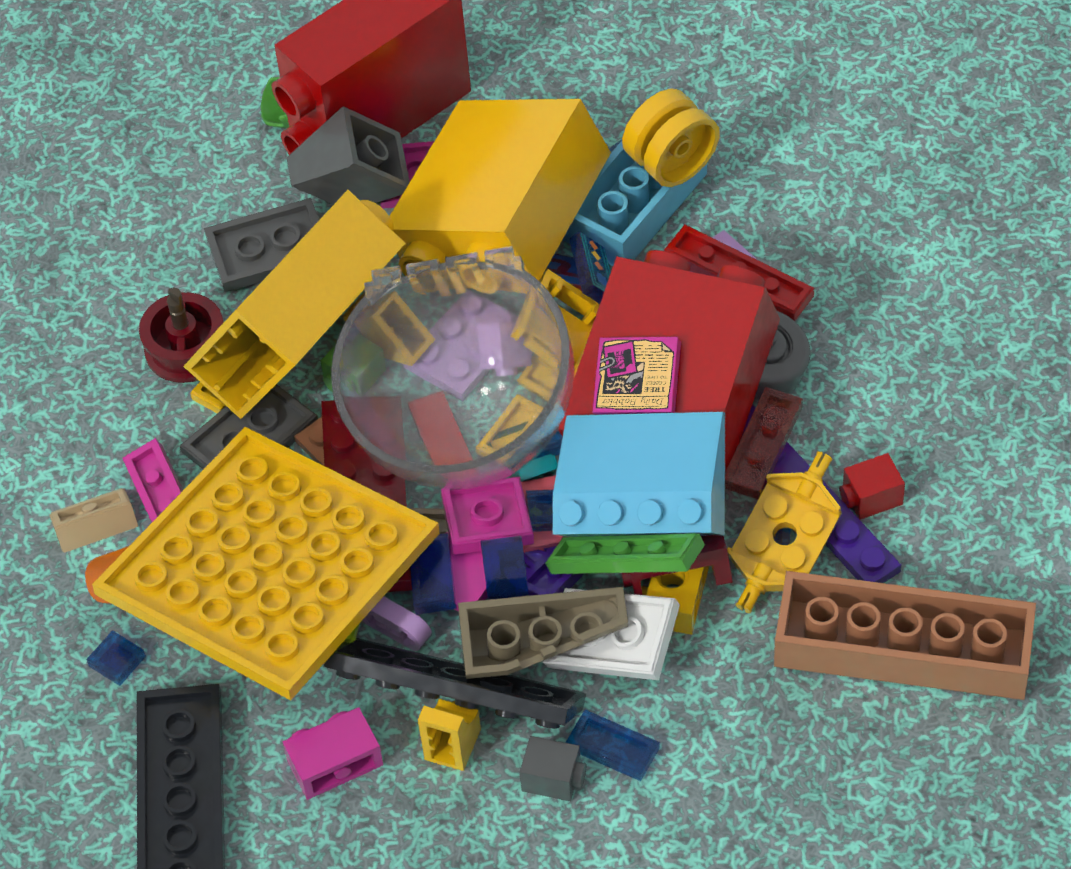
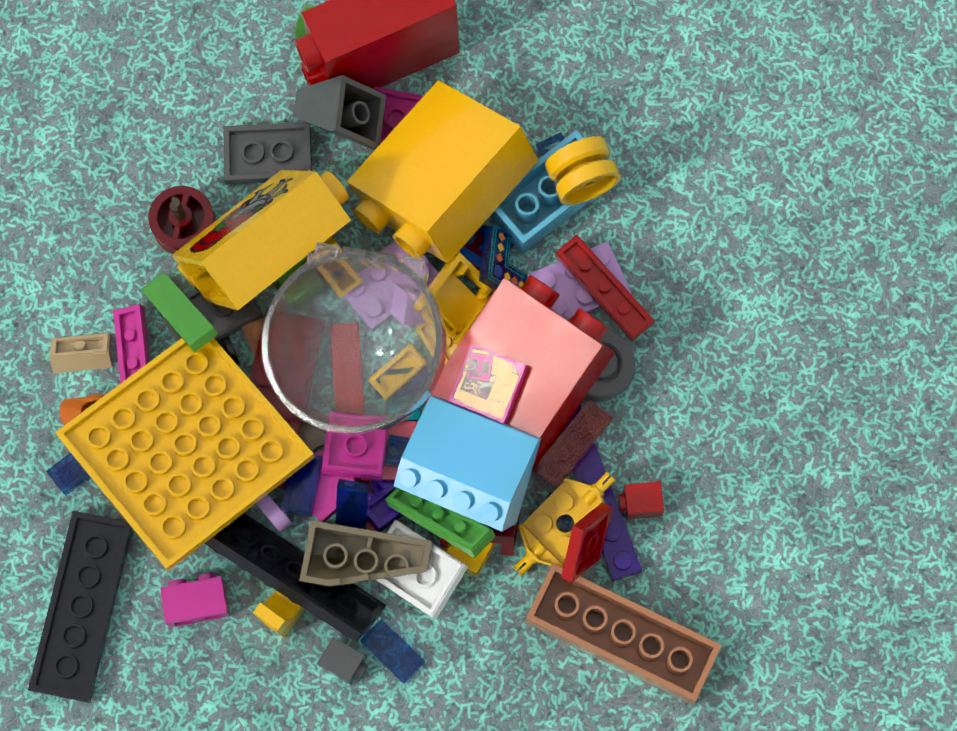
camera: 15 degrees right, 20 degrees up
(212, 425) = (179, 312): none -> bright green tile
(821, 530) = (586, 542): none -> red tile

